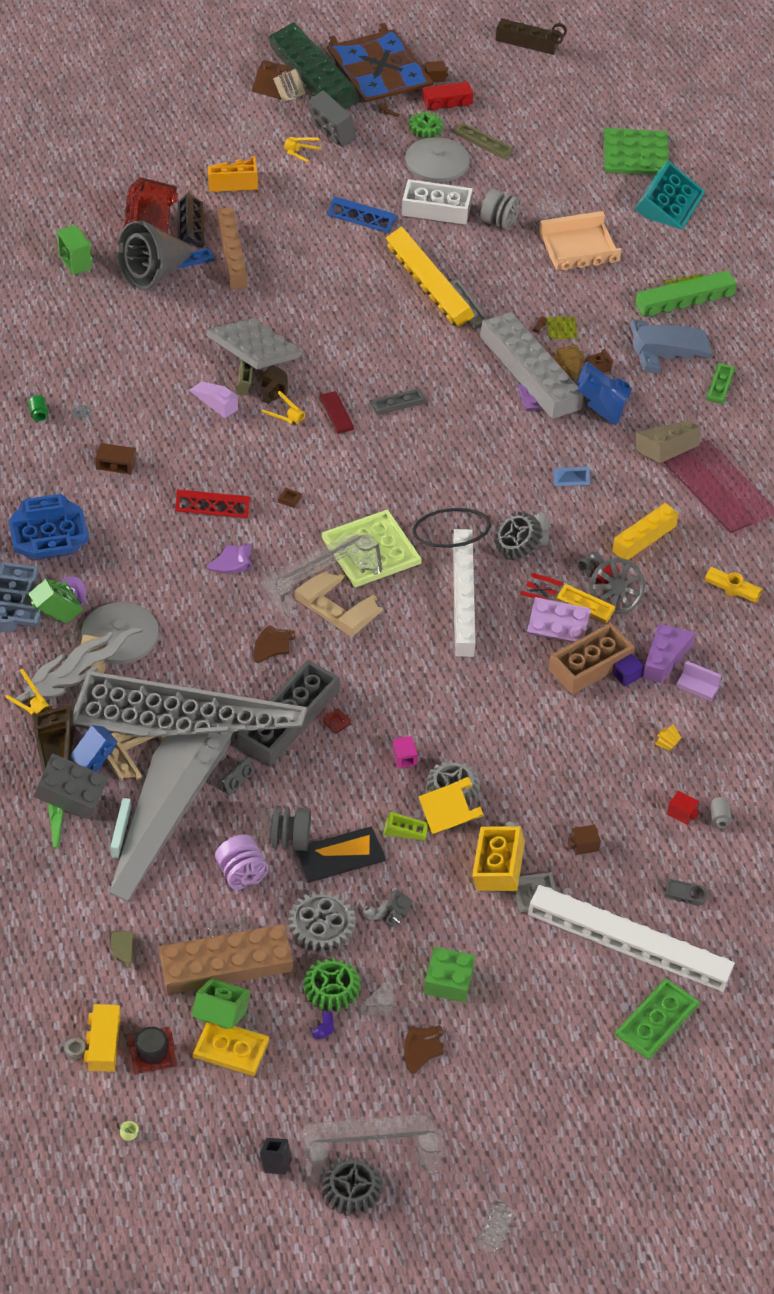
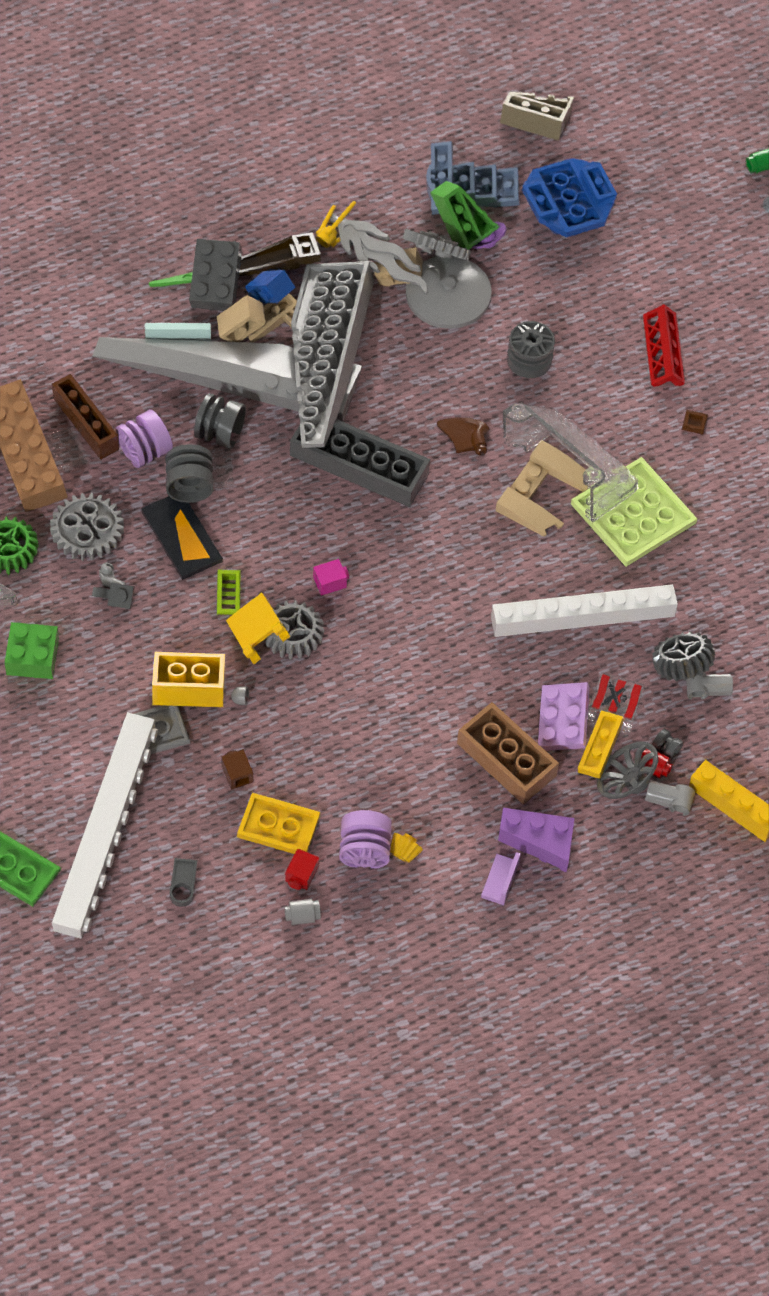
camera: 80 degrees right, 10 degrees up
(81, 622) = (429, 242): none -> light grey gear
(115, 458) = (703, 244): reddish brown brick -> none
(122, 946) = (32, 357): olive slope -> none
(125, 774) = (241, 319): none -> tan brick
(202, 581) = (530, 349): none -> dark grey wheel
(204, 906) = (85, 416): none -> reddish brown brick
(232, 560) = (582, 380): medium lavender arm -> none
(233, 803) = (216, 420): none -> dark grey wheel
(237, 776) = (267, 425): dark grey hinge -> none
(336, 721) = (363, 508): clear red plate -> none
(456, 544) = (651, 600): black piece -> none
(628, 670) = (502, 795): dark purple brick -> none
(638, 819) = (278, 824): none -> yellow plate
(643, 564) = (675, 798): none -> light grey piece
(665, 758) = (365, 839): none -> lavender wheel
(733, 584) = (668, 920): yellow piece -> none

